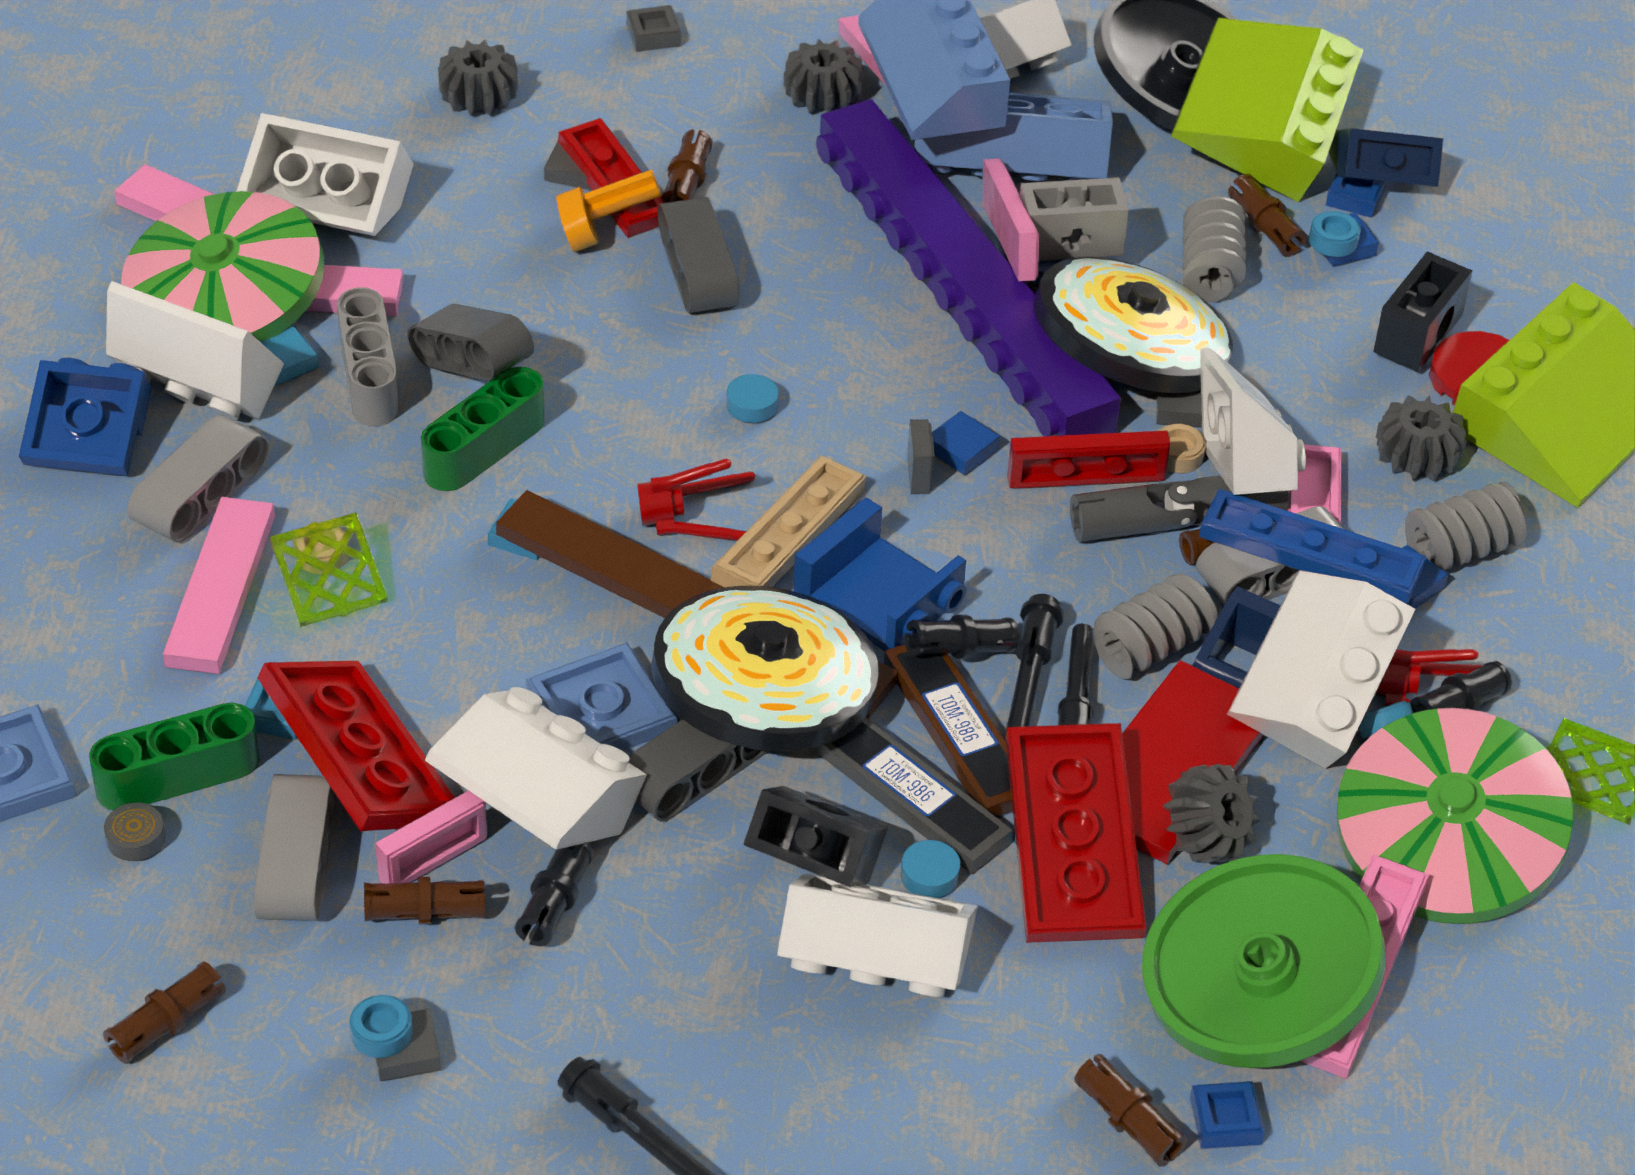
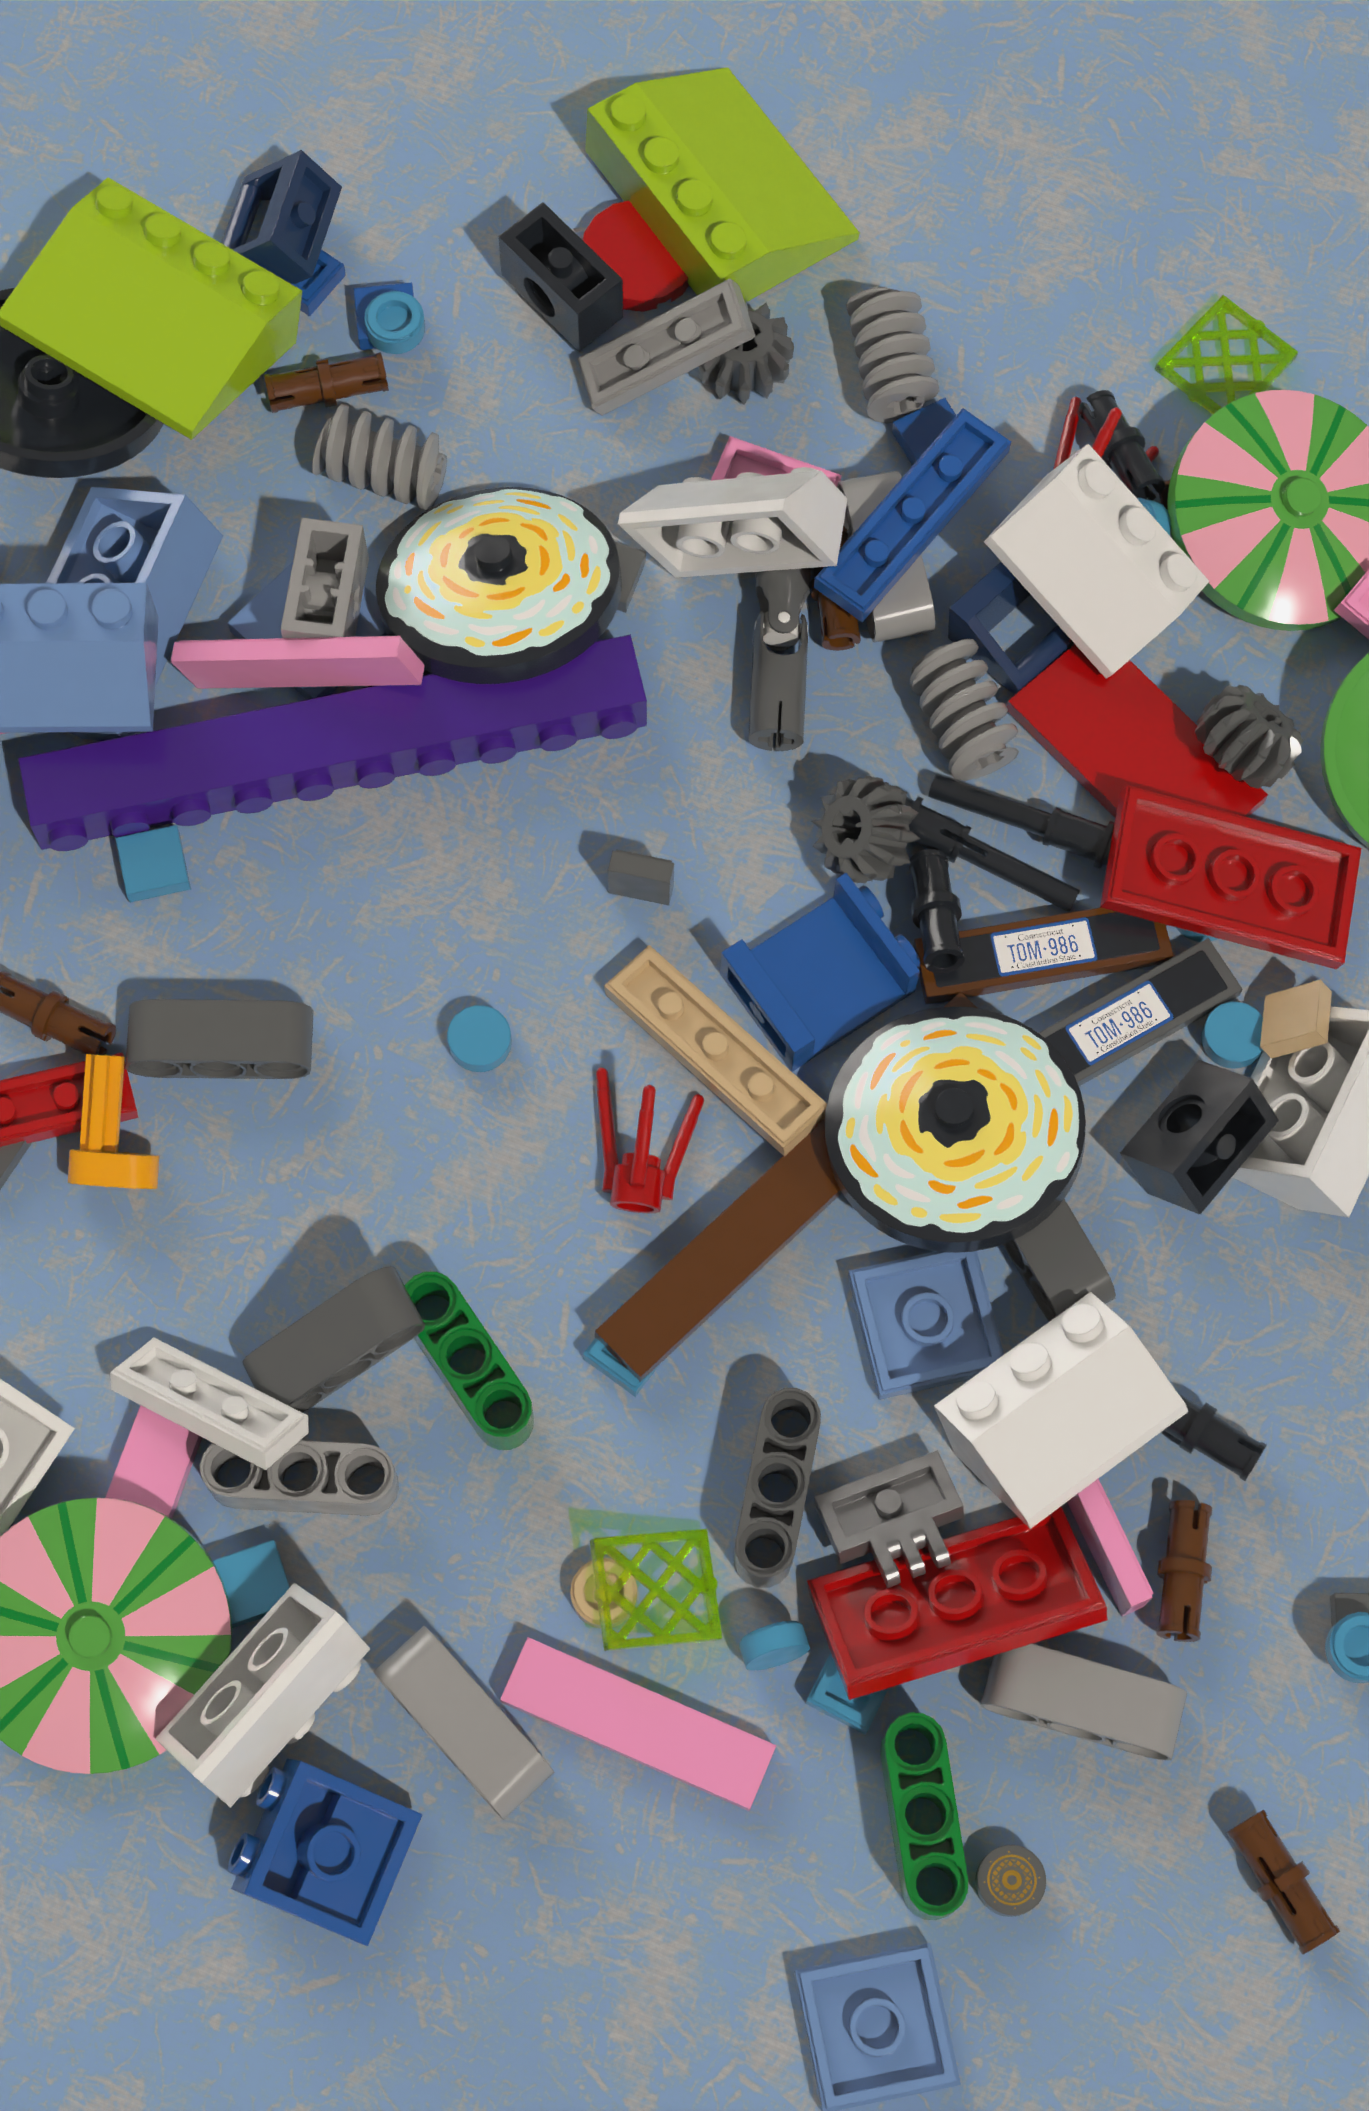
camera: 75 degrees left, 25 degrees up
(297, 640) = (774, 1645): none -> dark azure tile
(407, 288) = (209, 1403): none -> white tile
(415, 693) = (893, 1516): none -> flat silver hinge
(428, 622) = (777, 1456): none -> dark grey beam
(827, 202) = (153, 863): none -> dark azure tile
(953, 892) = (1296, 1019): none -> tan tile
(964, 442) = (612, 824): blue tile -> none
(1012, 572) = (865, 829): none -> dark grey gear
(1088, 459) = (691, 700): red tile -> none
(1186, 448) = (678, 601): tan tile -> none
(1392, 380) = (666, 347): none -> light grey tile

